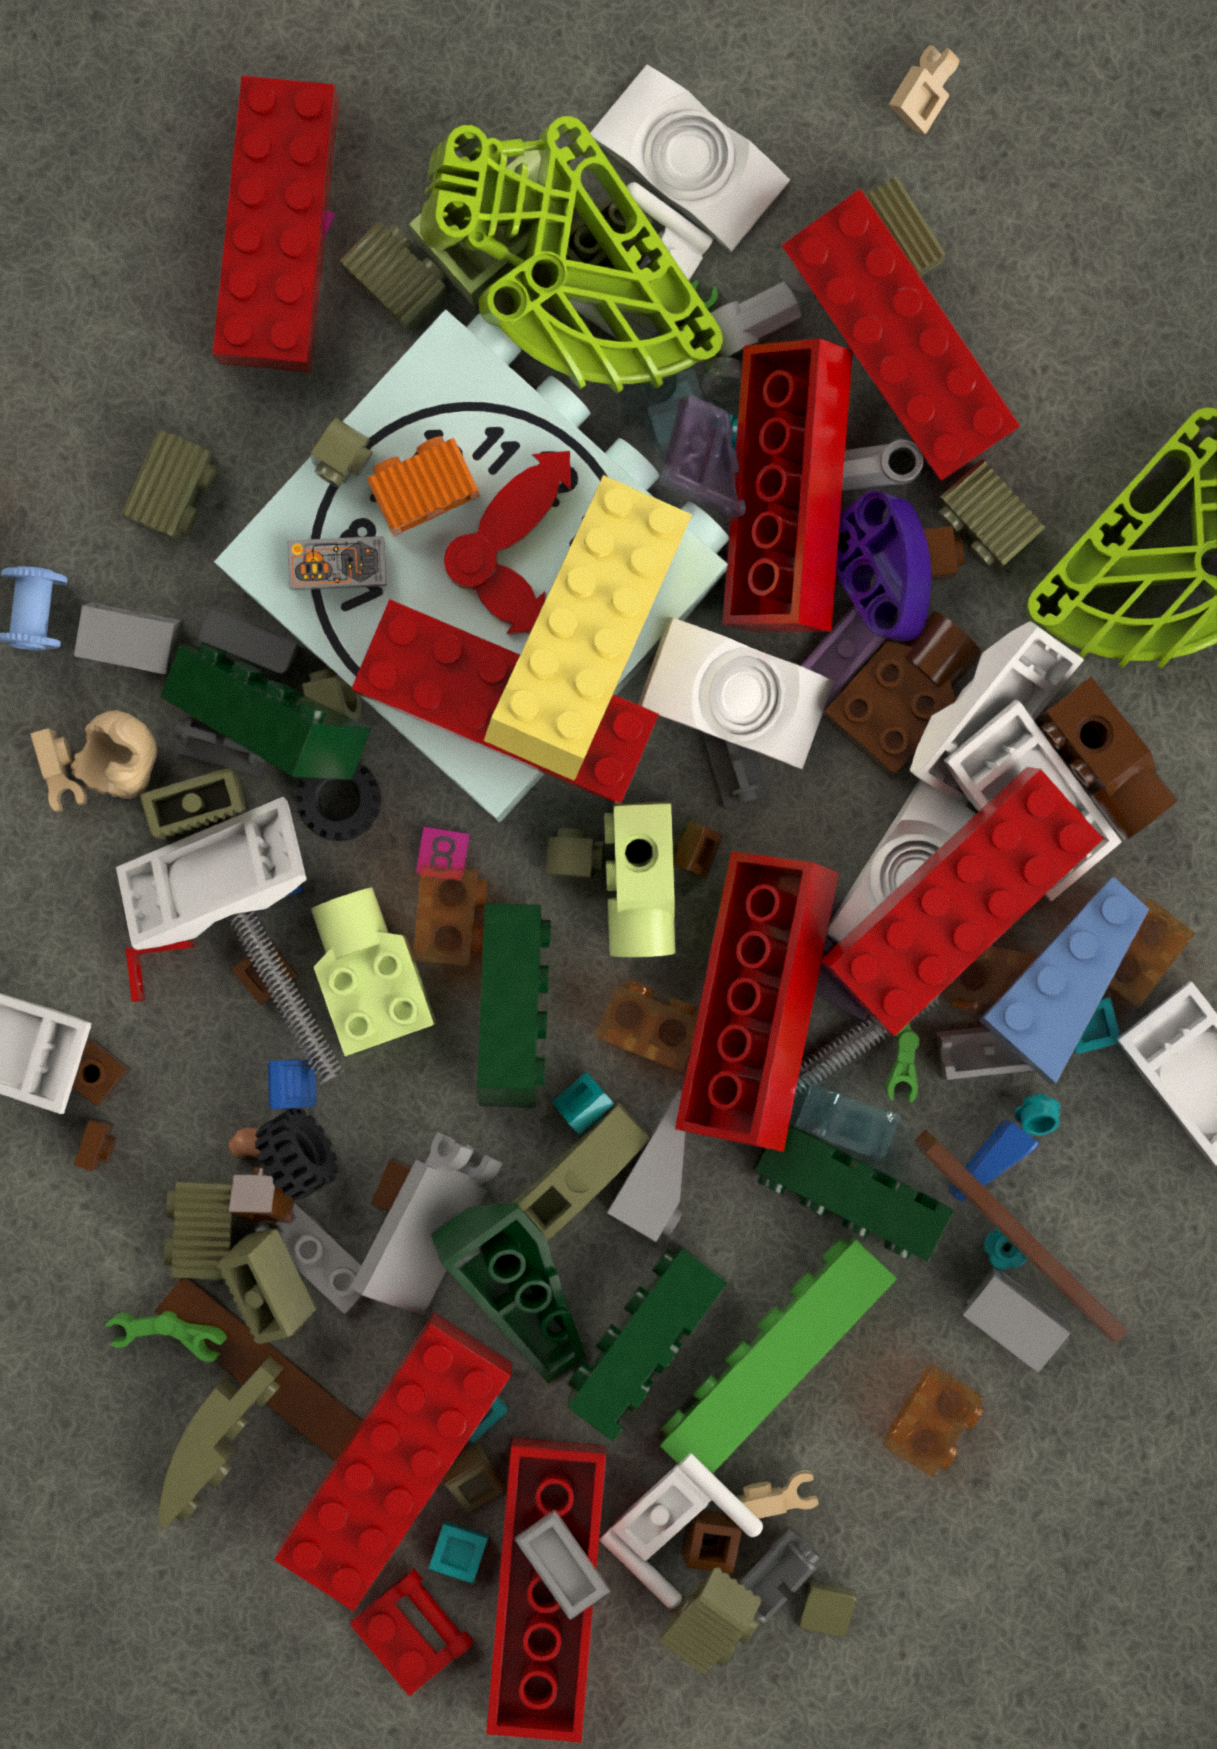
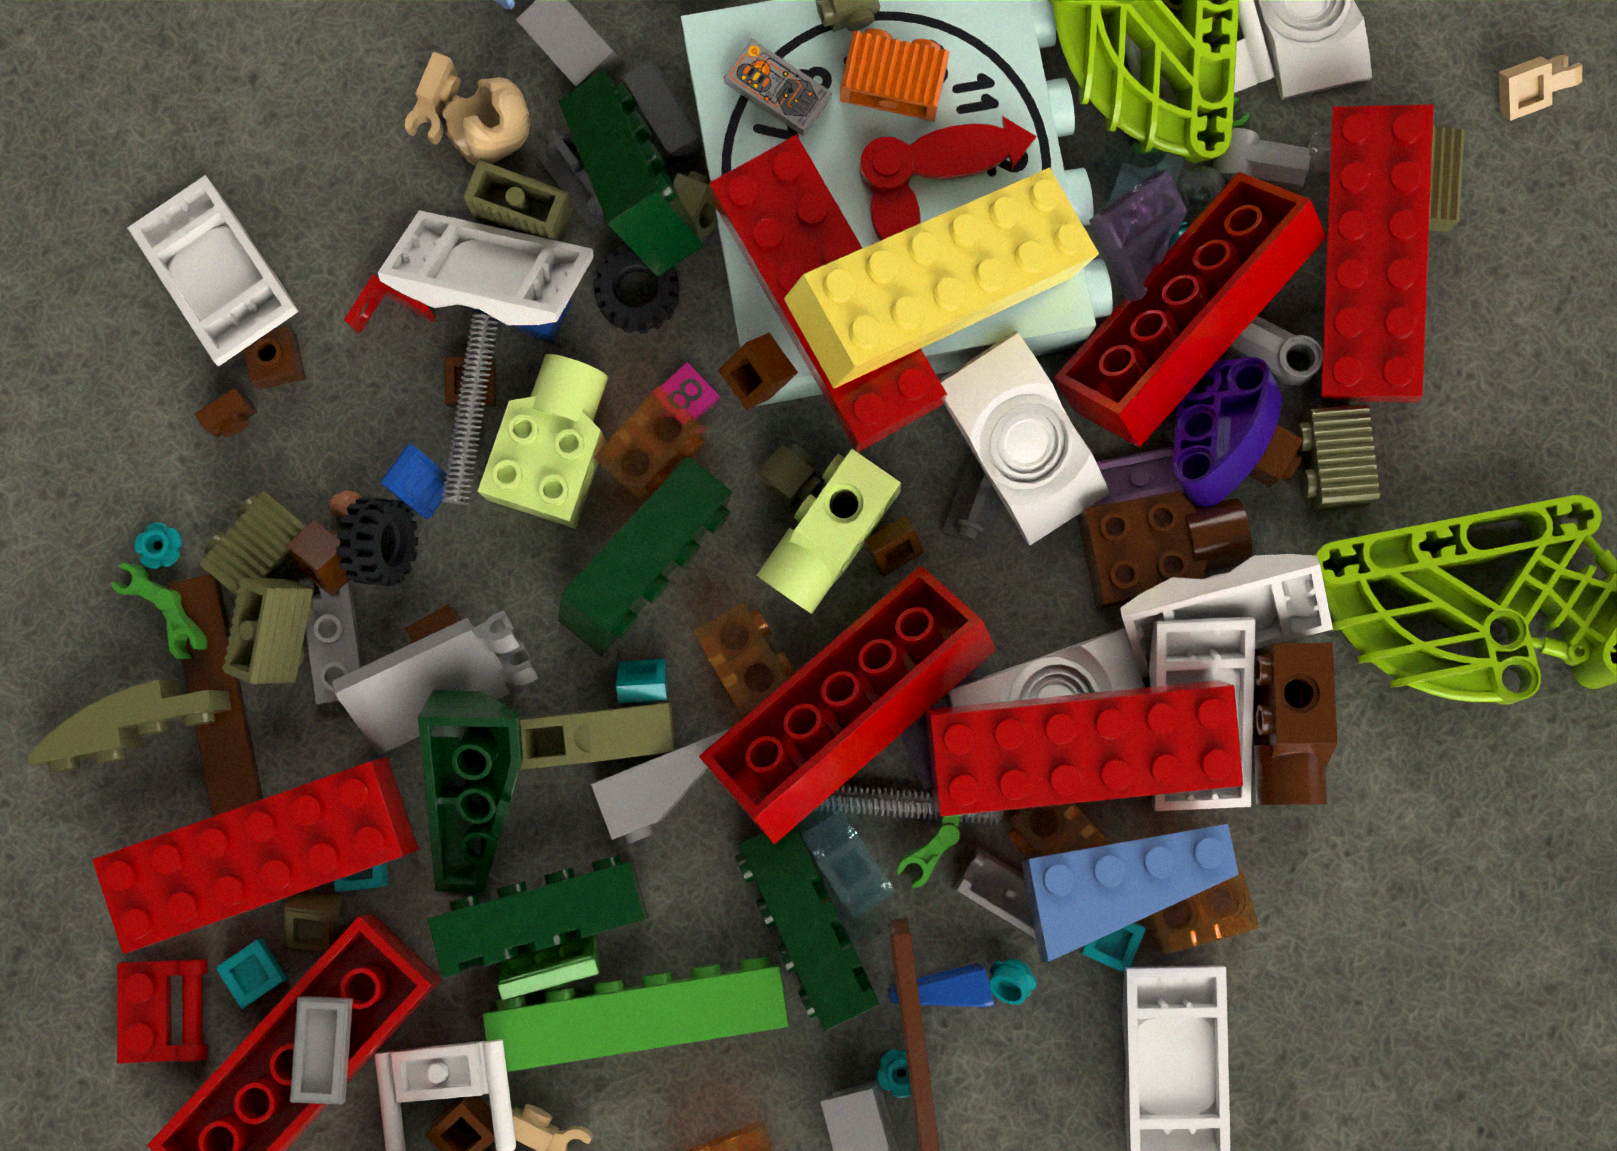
camera: 35 degrees right, 5 degrees down
(135, 1287) = (170, 550): none -> teal plate
(497, 803) = (757, 371): none -> reddish brown plate
(682, 1375) = (548, 968): none -> bright green plate

